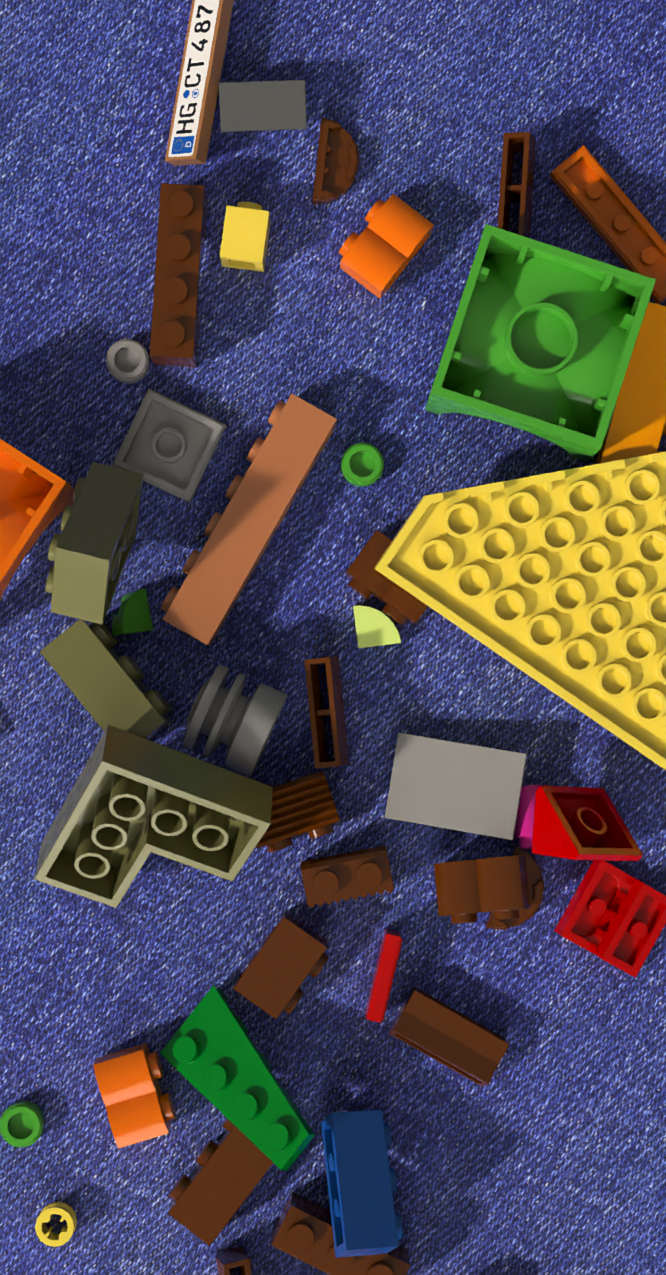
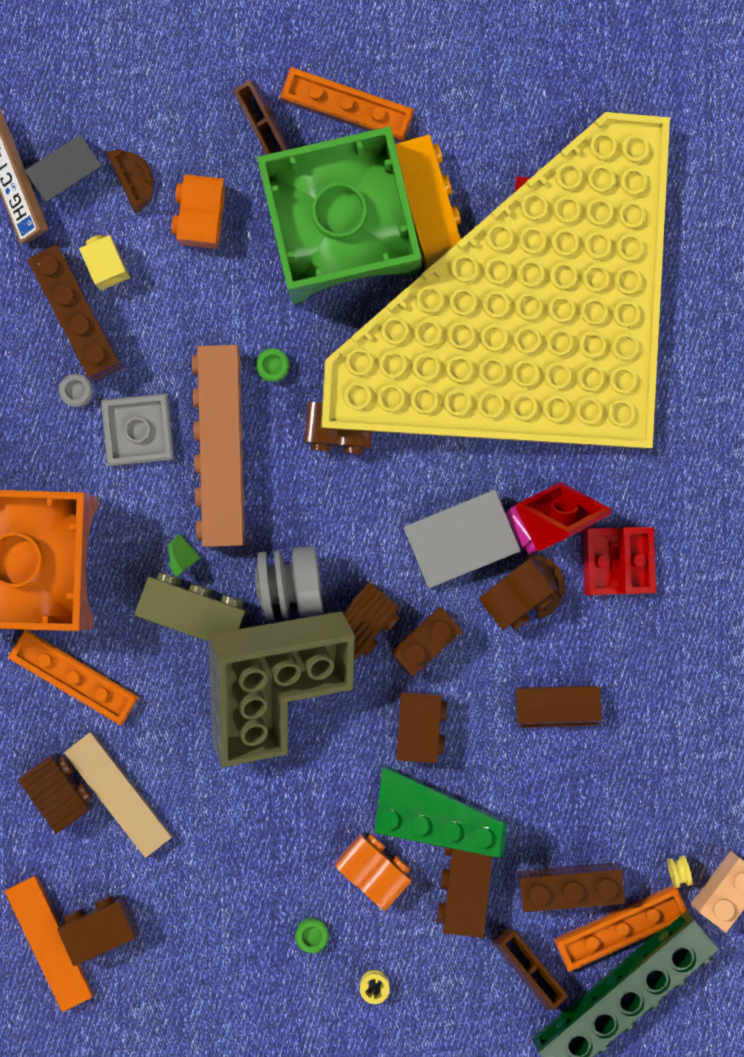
camera: 30 degrees left, 0 degrees up
(94, 542) = (126, 522): olive brick -> none
(336, 711) = (353, 537): reddish brown piece -> none
(360, 1183) = (557, 836): blue brick -> none
(374, 628) = (345, 468): yellowish green tile -> none
(383, 975) = (490, 692): red tile -> none

